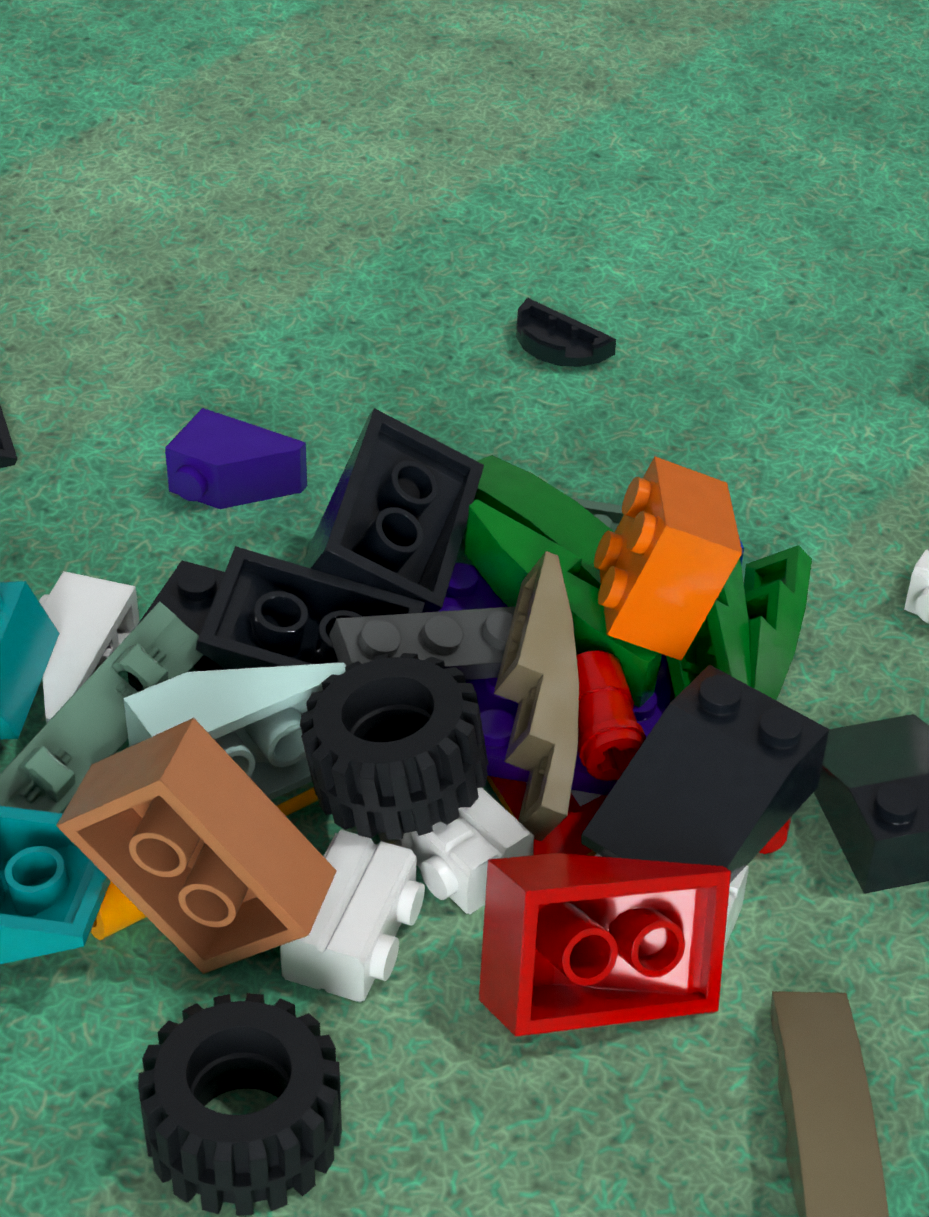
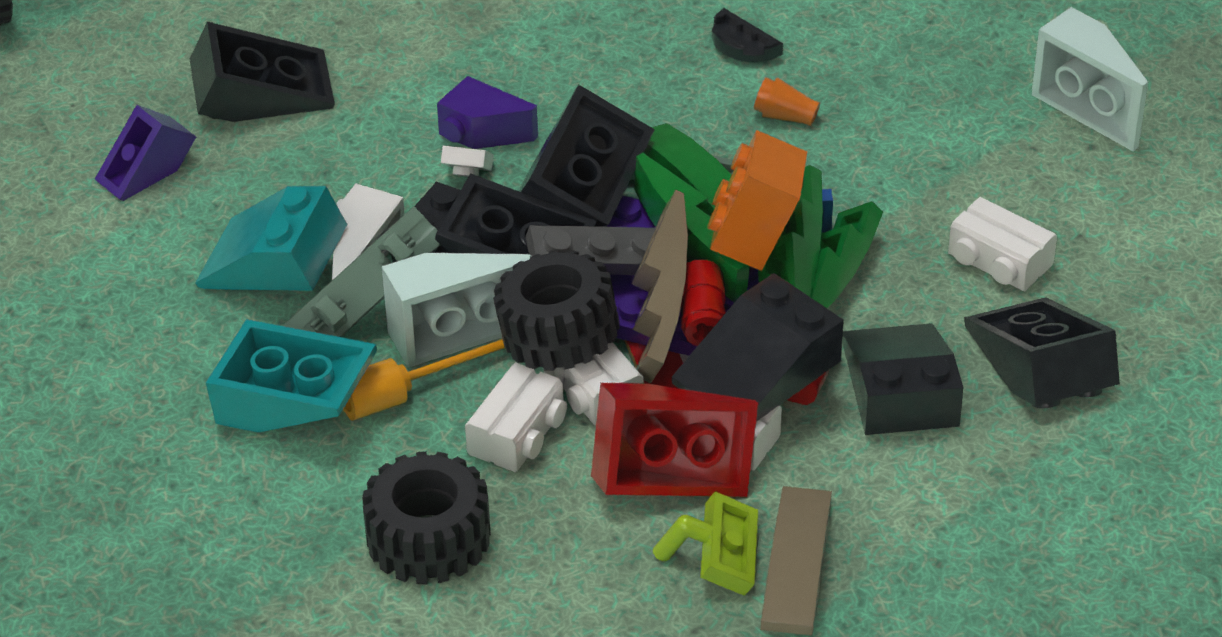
camera: 10 degrees right, 0 degrees up
(198, 847) = (417, 362): nougat brick -> none
(216, 526) = (466, 160): none -> white plate
(637, 418) = (784, 102): none -> orange cone
(714, 1097) = (726, 539): none -> lime plate

